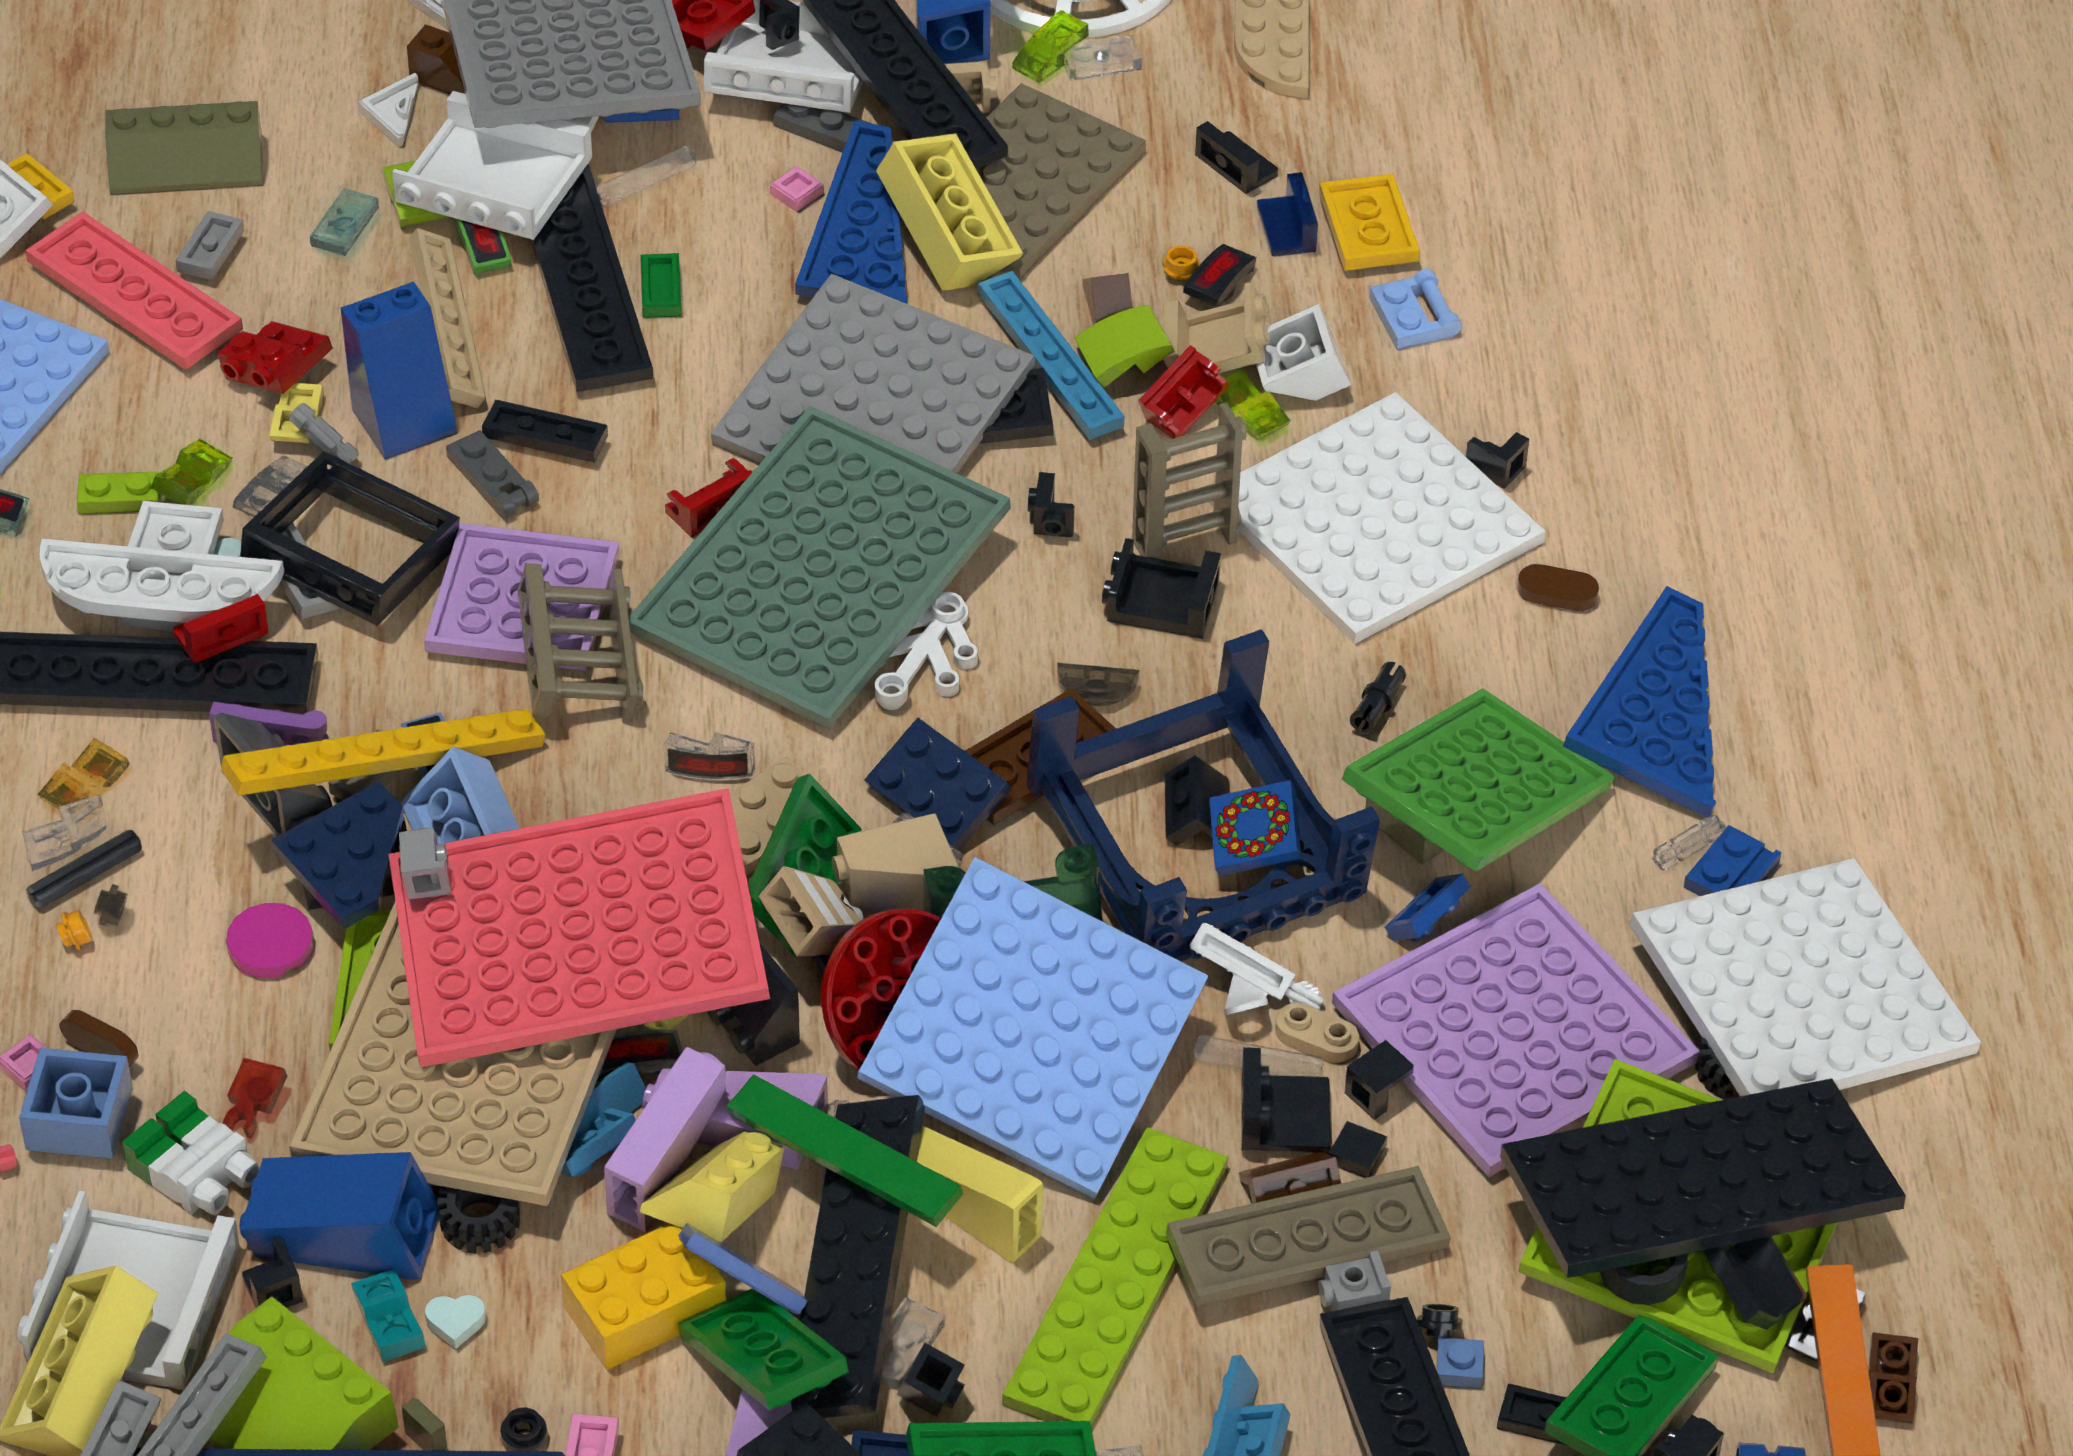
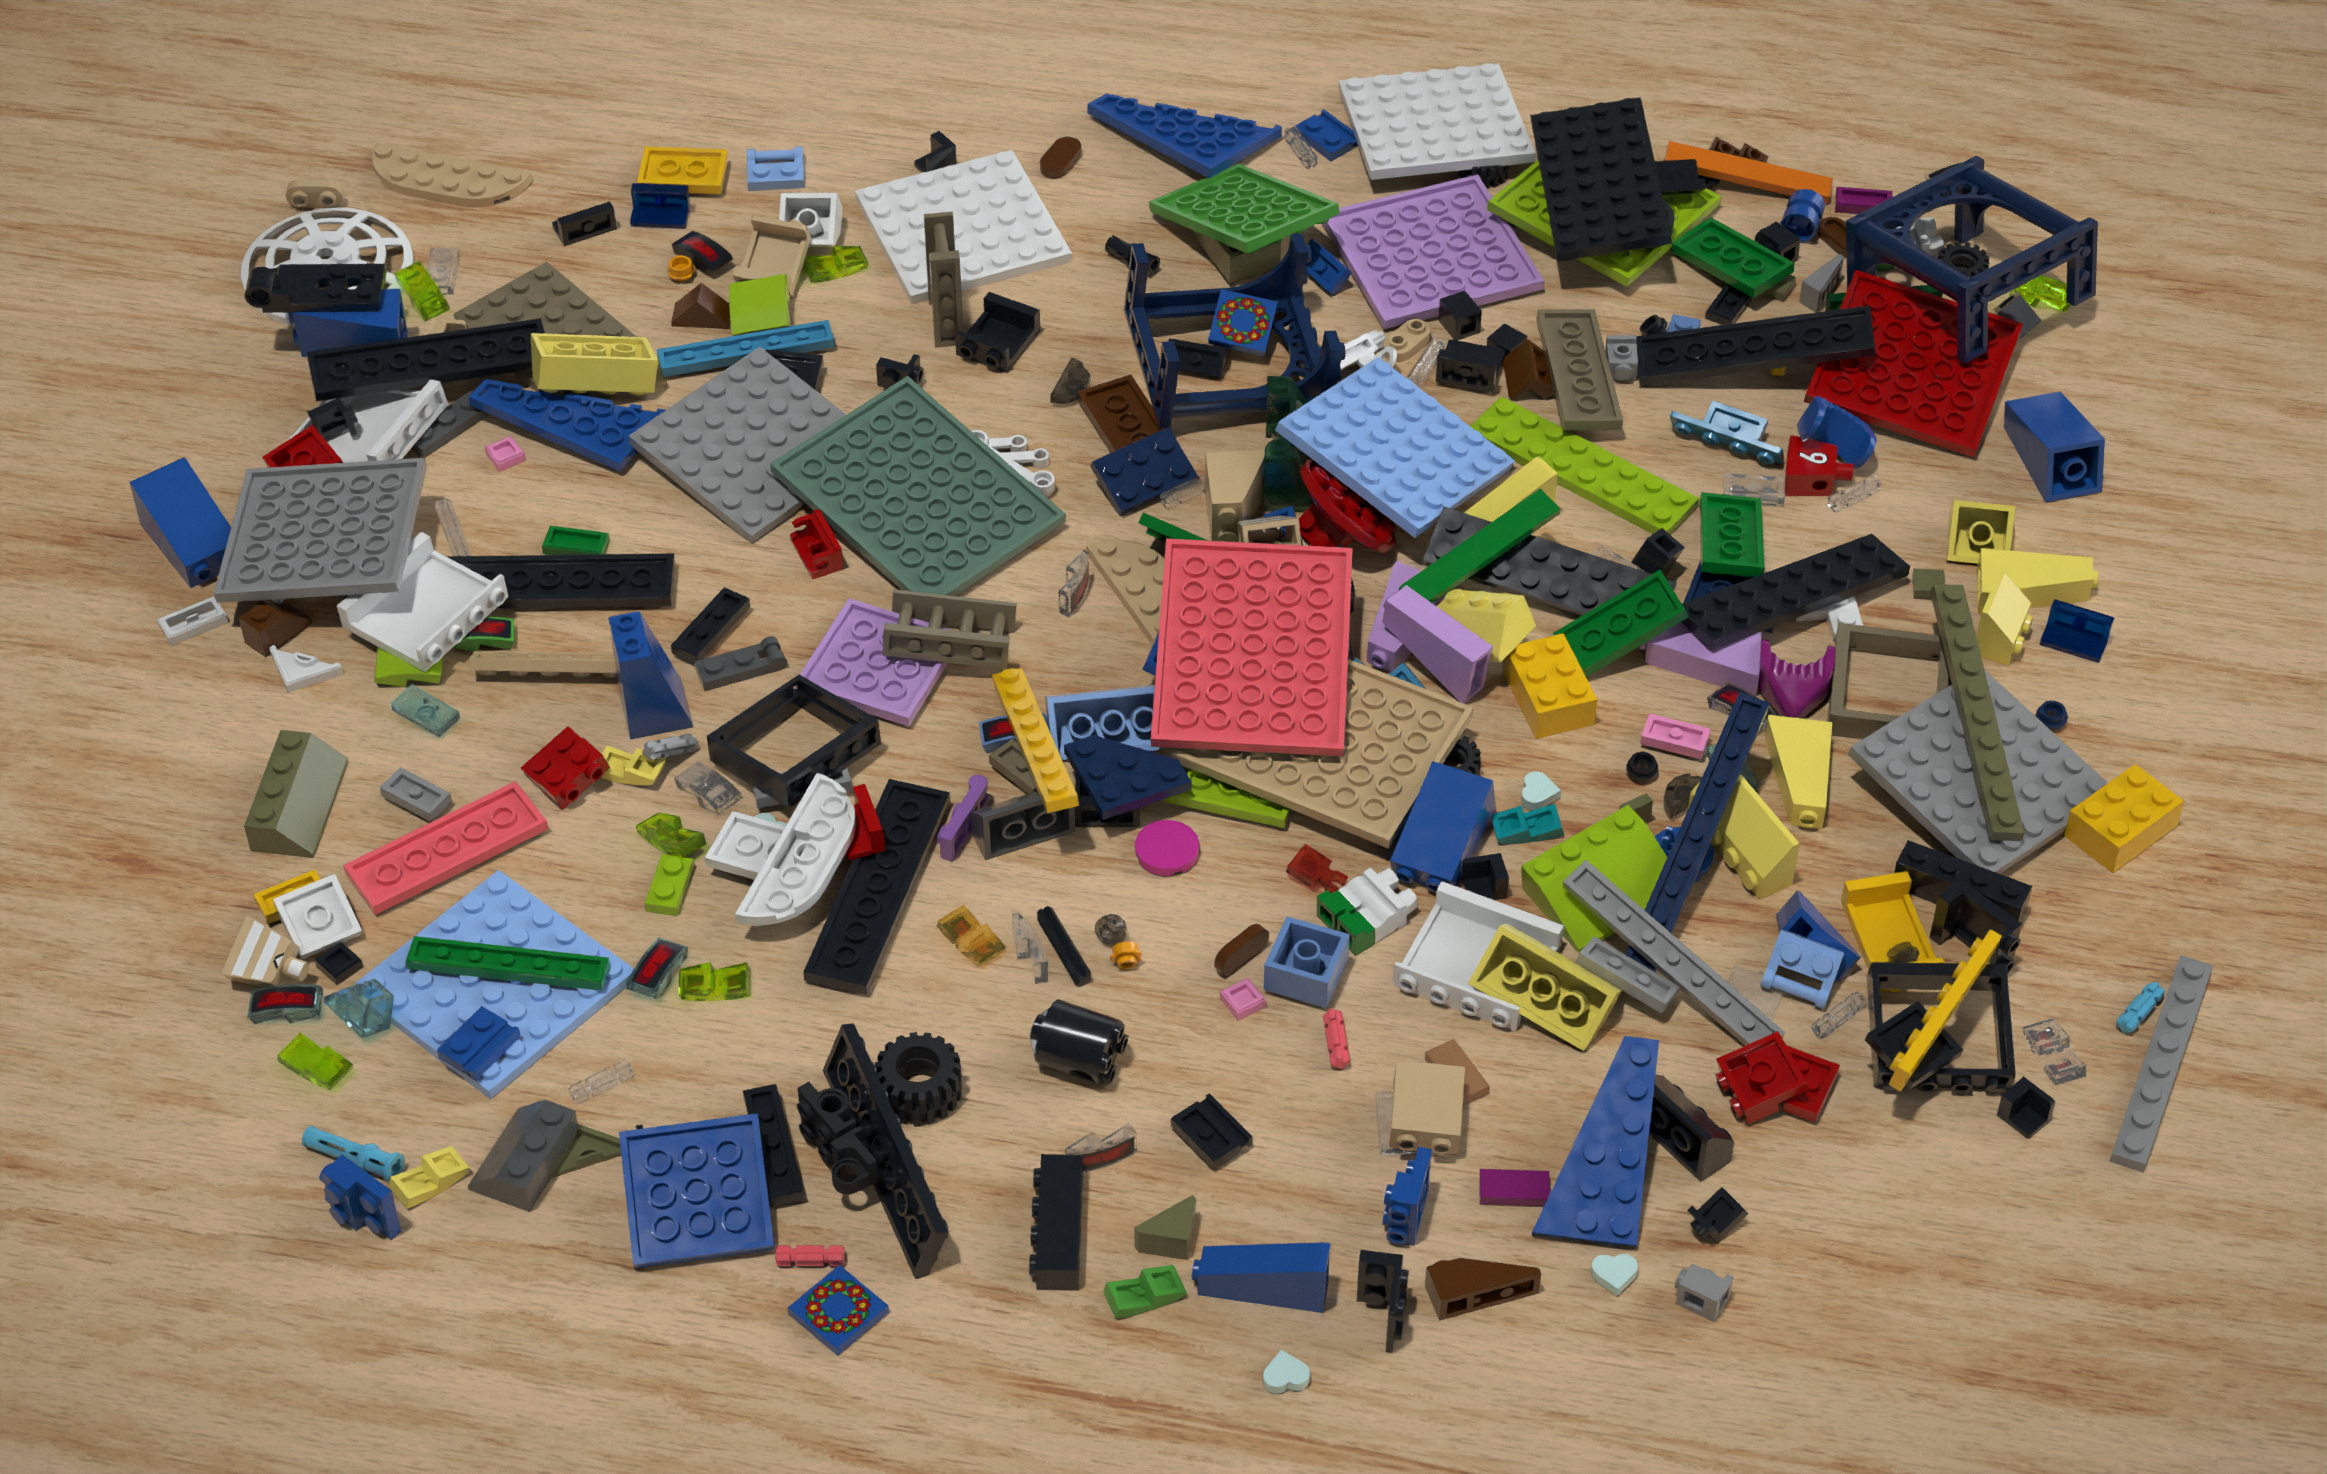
camera: 75 degrees left, 0 degrees up
(423, 864) = (1180, 710): light grey brick -> none
(742, 1269) = (1557, 621): tile -> none
(1183, 393) = (820, 286): red hinge -> none

